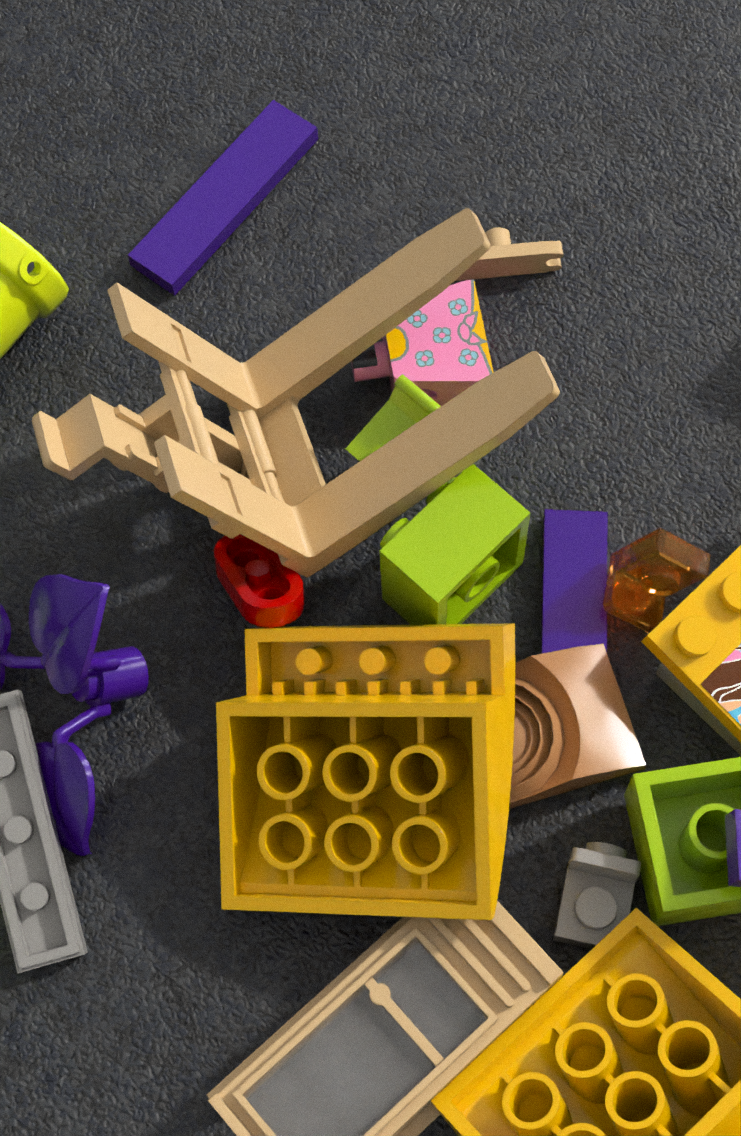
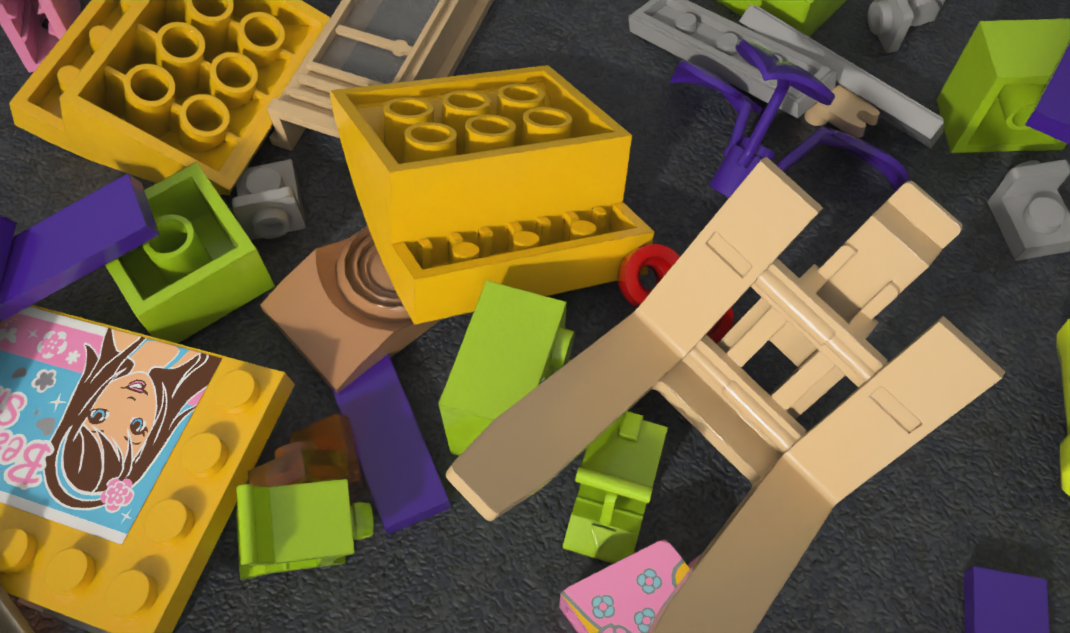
camera: 150 degrees right, 5 degrees down
(684, 506) = (297, 526): none -> lime piece

